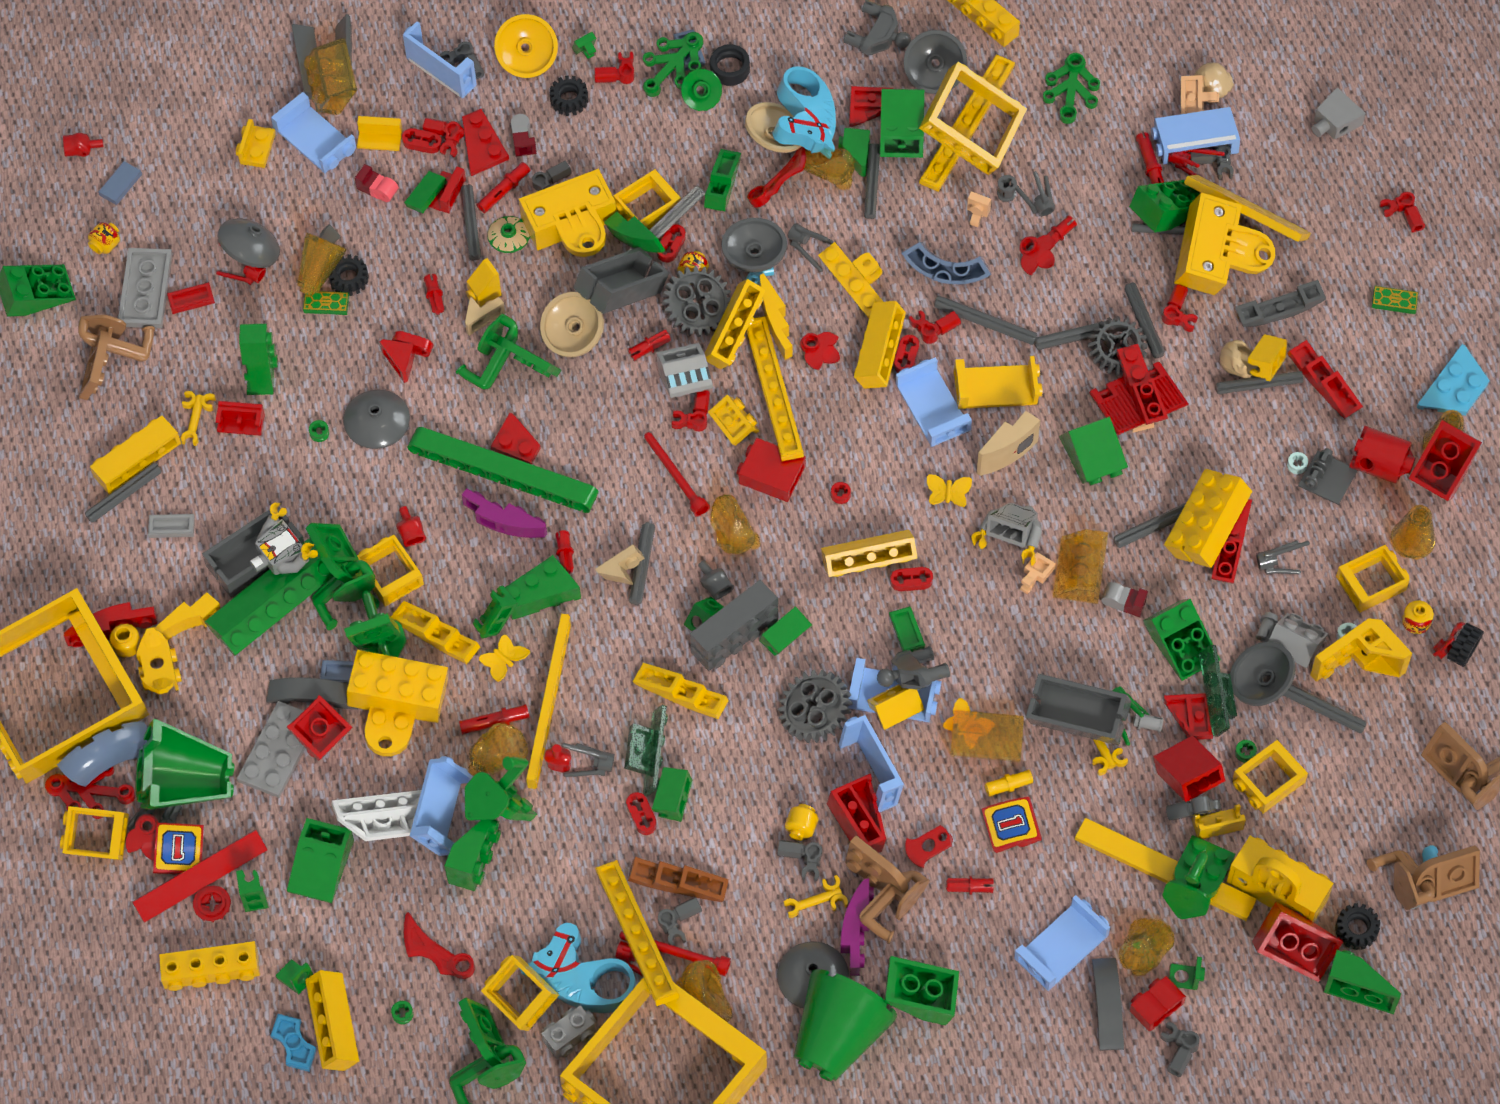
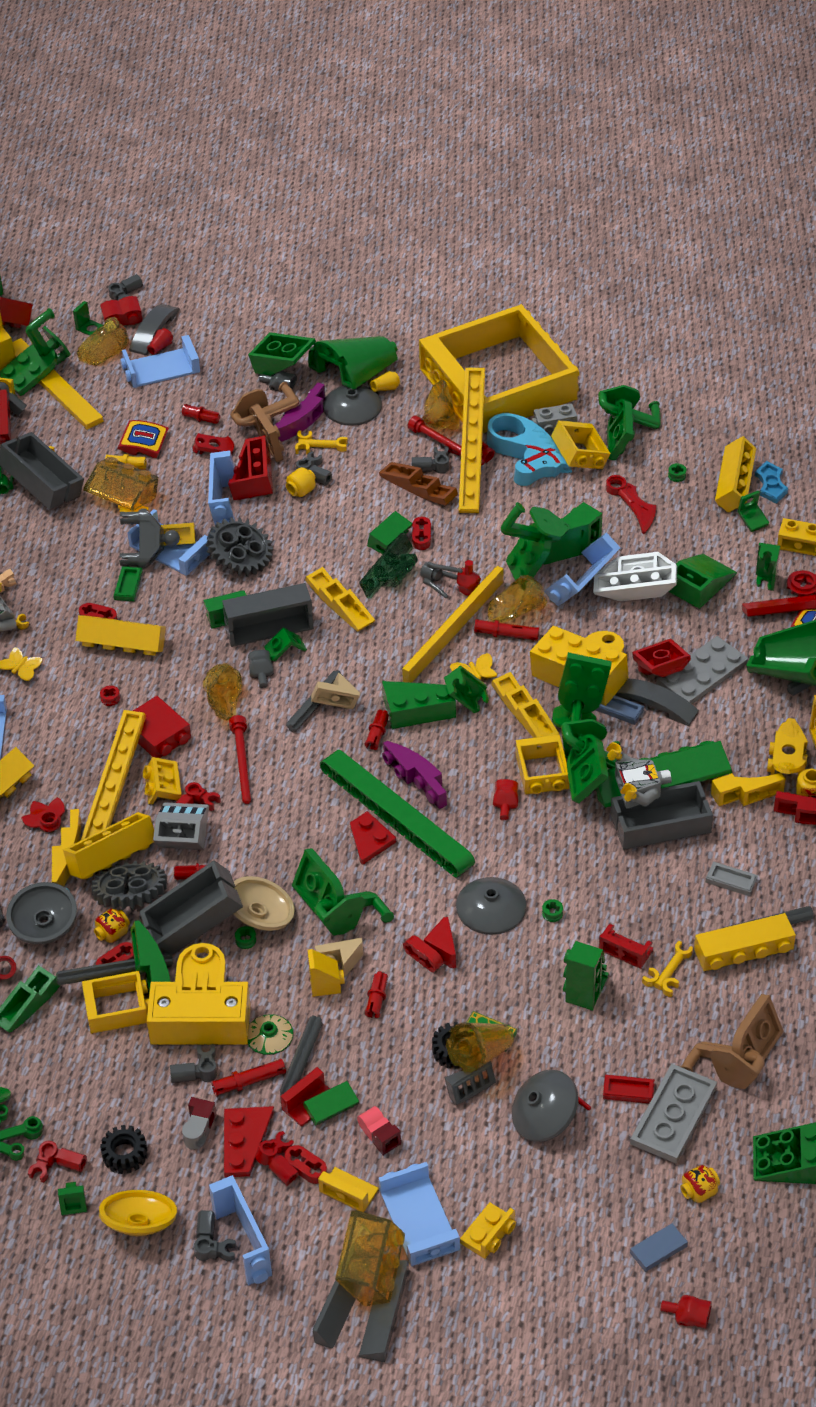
camera: 155 degrees left, 15 degrees down
(788, 1013) = (385, 382): none -> yellow cone
(1083, 978) = (160, 341): none -> red cone

